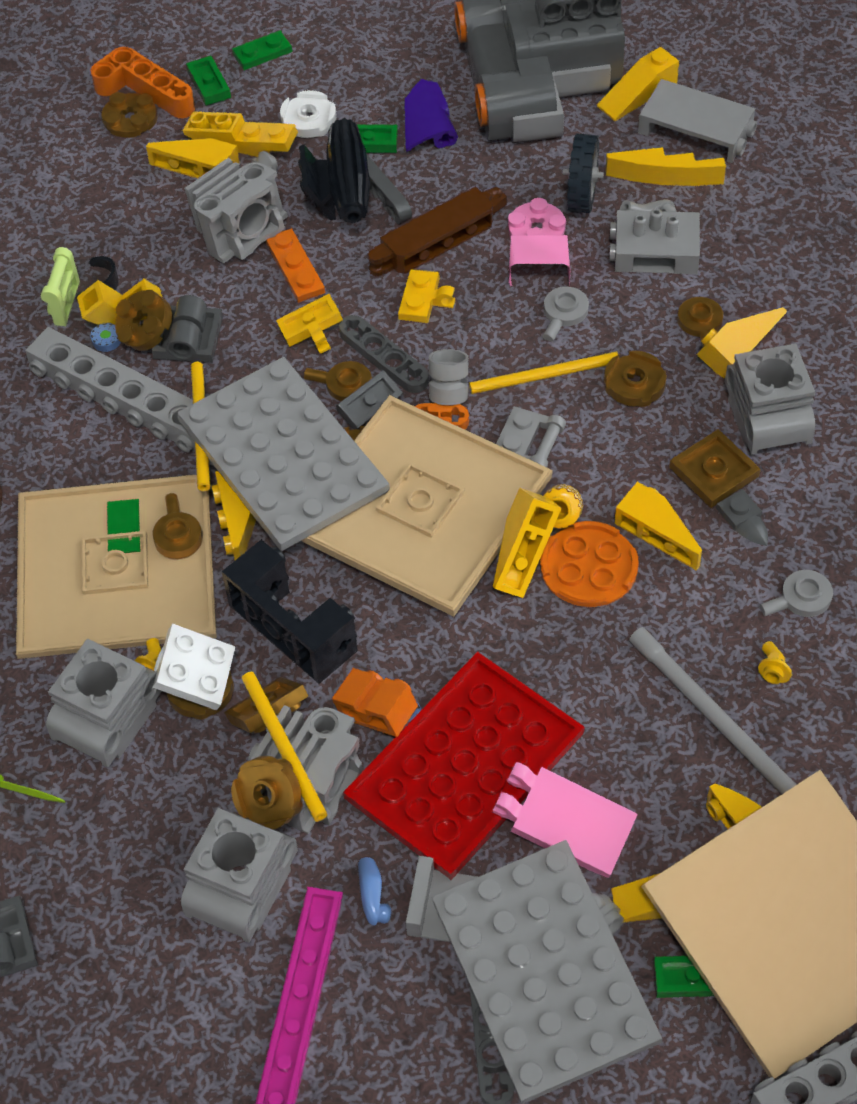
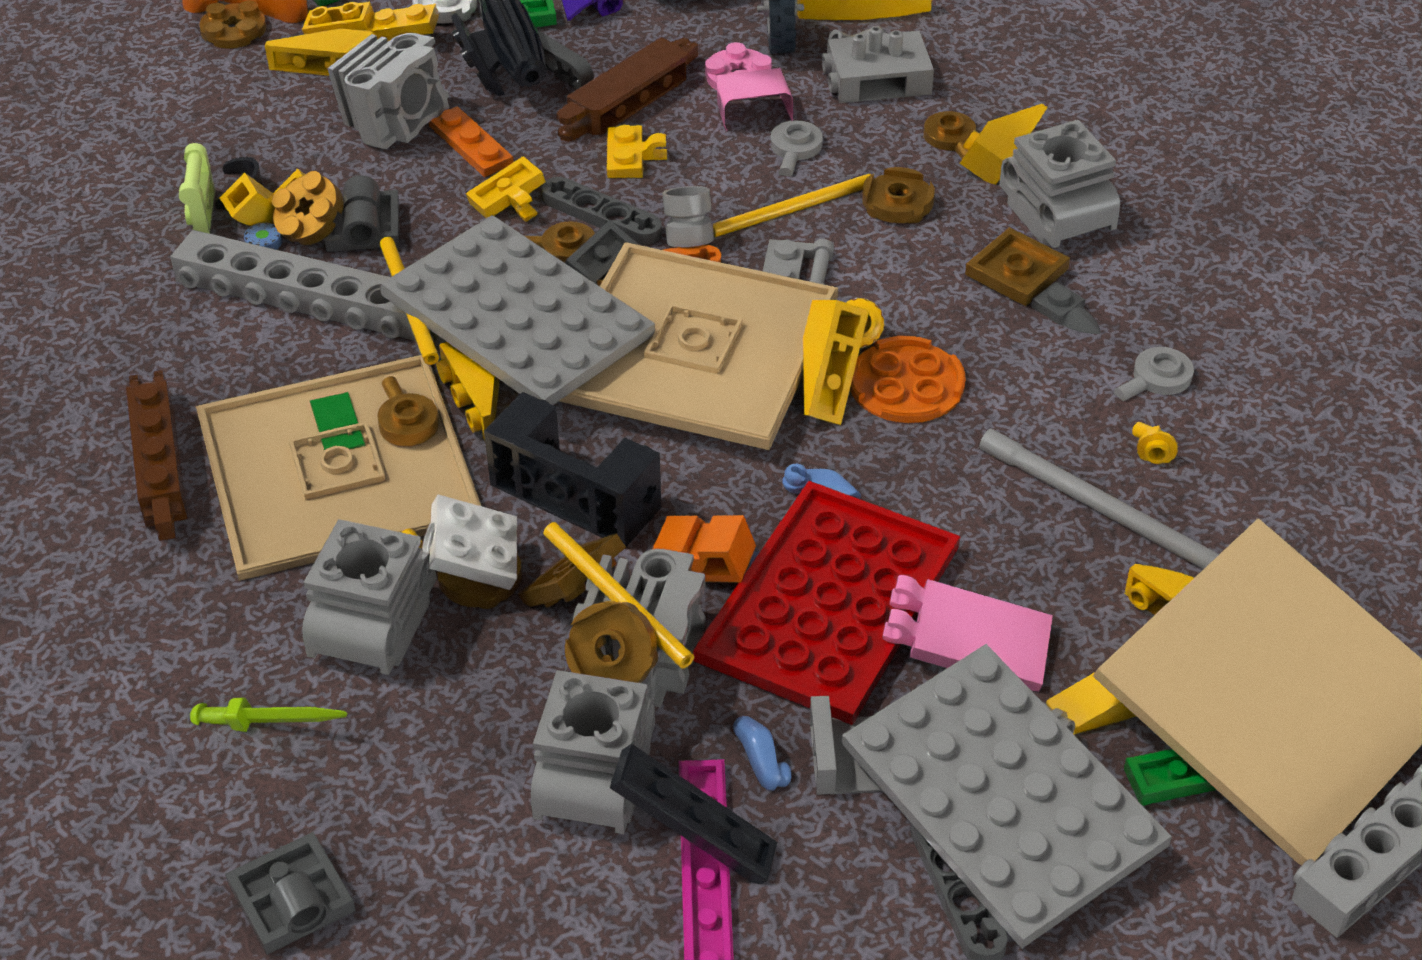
camera: 15 degrees left, 10 degrees down
(296, 946) = (693, 814): none -> black tile
(490, 649) = (797, 476): none -> medium blue arm
(653, 519) = (977, 327): yellow slope -> none

